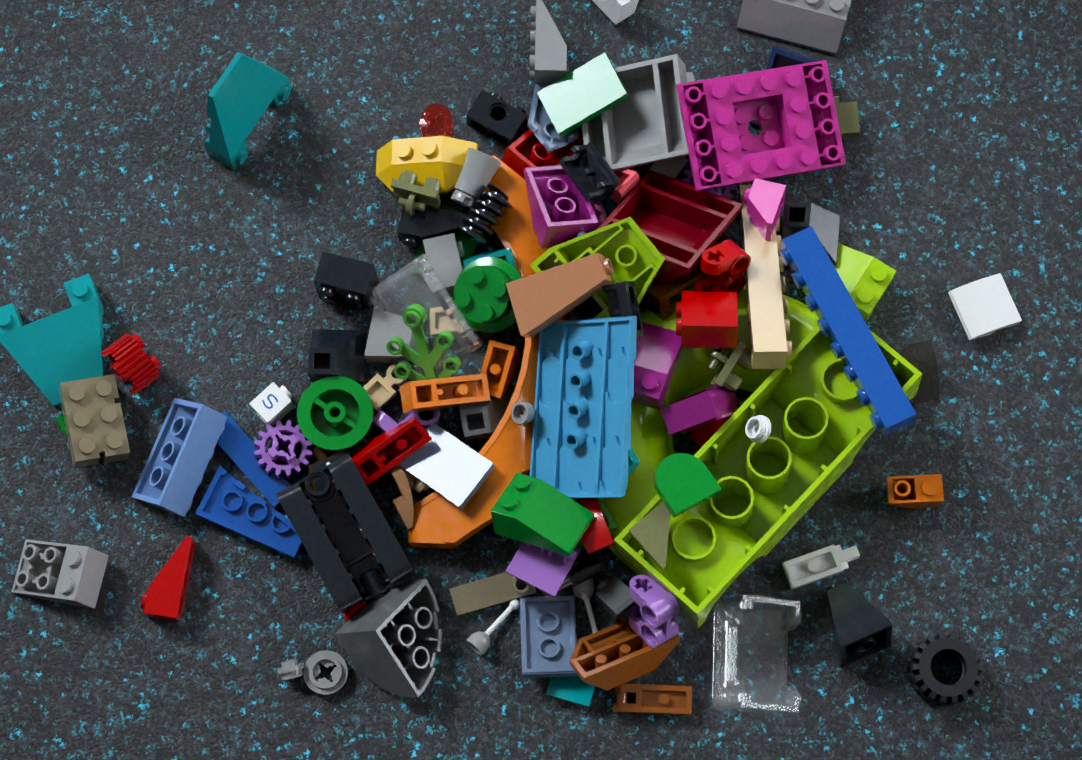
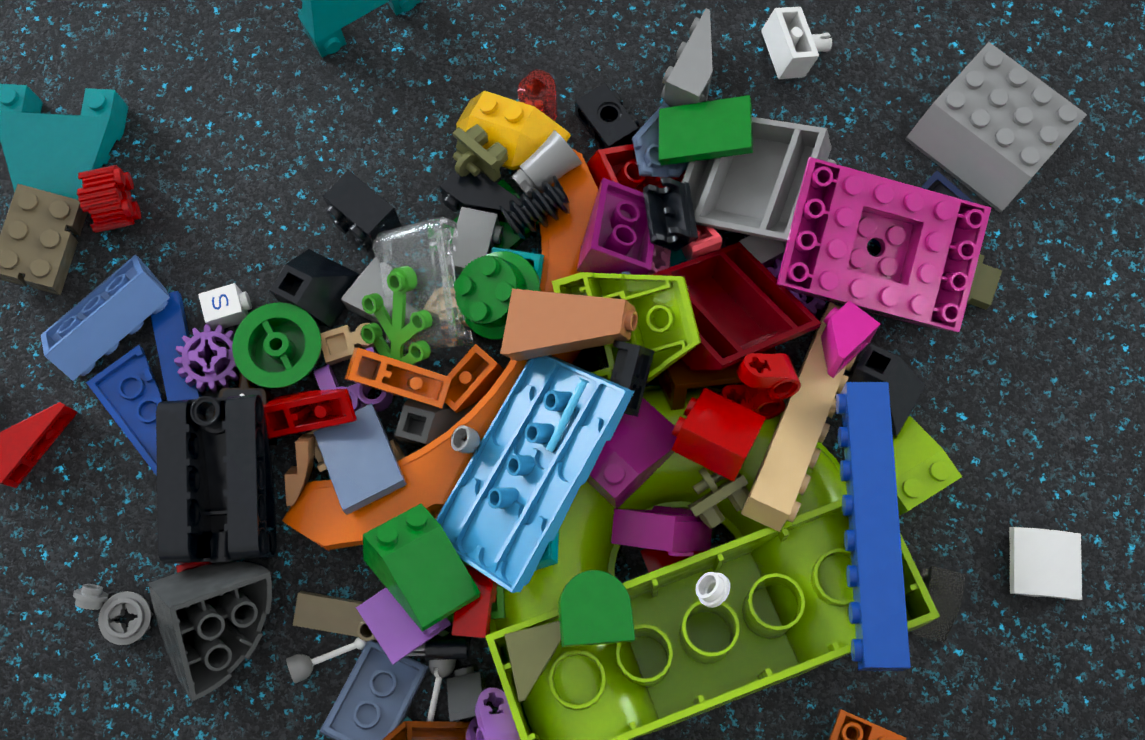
camera: 30 degrees right, 0 degrees up
(594, 356) = (566, 414): none -> medium azure piece

